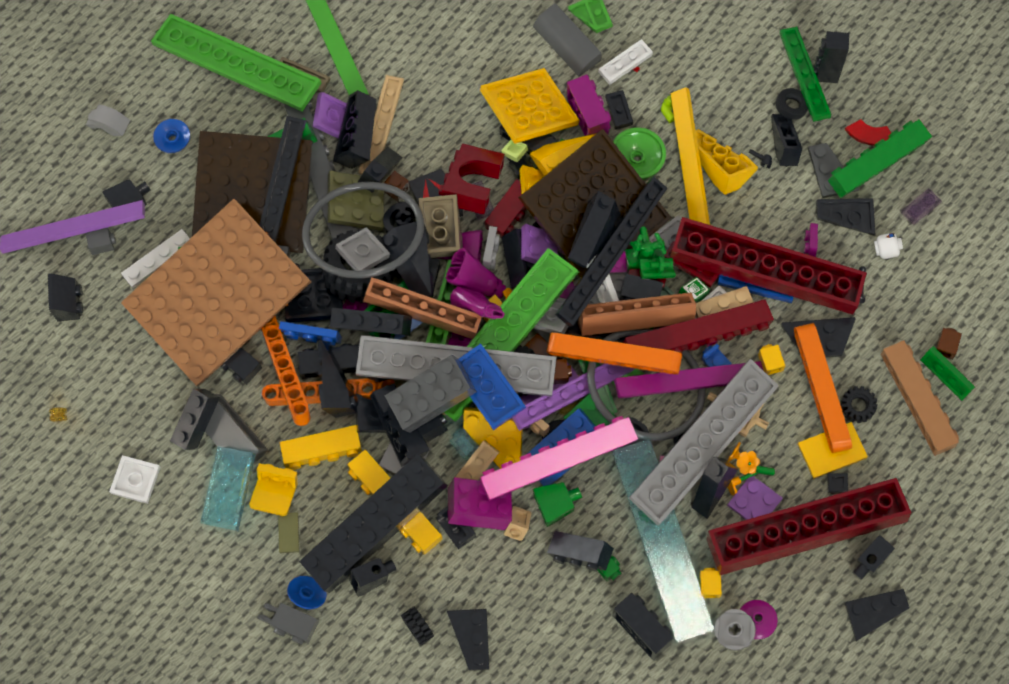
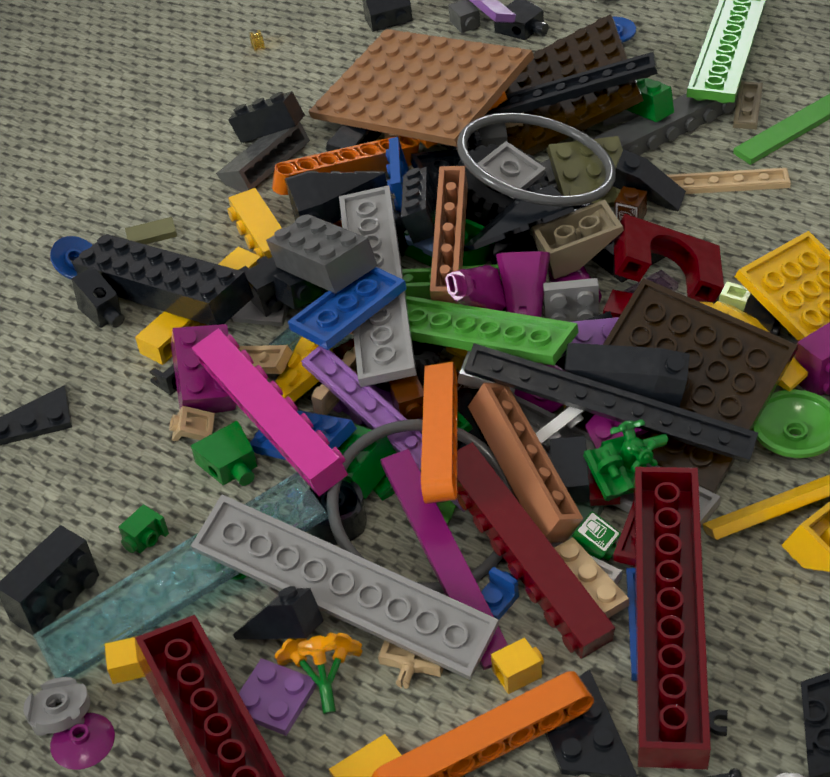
camera: 80 degrees right, 25 degrees down
(135, 479) = (194, 106): white plate -> none
(228, 488) = (191, 165): clear light blue plate -> none
(274, 489) = (197, 205): yellow bracket -> none
(291, 622) = (33, 259): dark grey hinge -> none
(329, 114) = (699, 130): medium lavender plate -> none
(356, 131) = (693, 152): black wedge -> none
(417, 625) = (29, 347): black tyre -> none
(580, 551) = (151, 486): black brick -> none
(811, 237) = (743, 677): magenta wing -> none

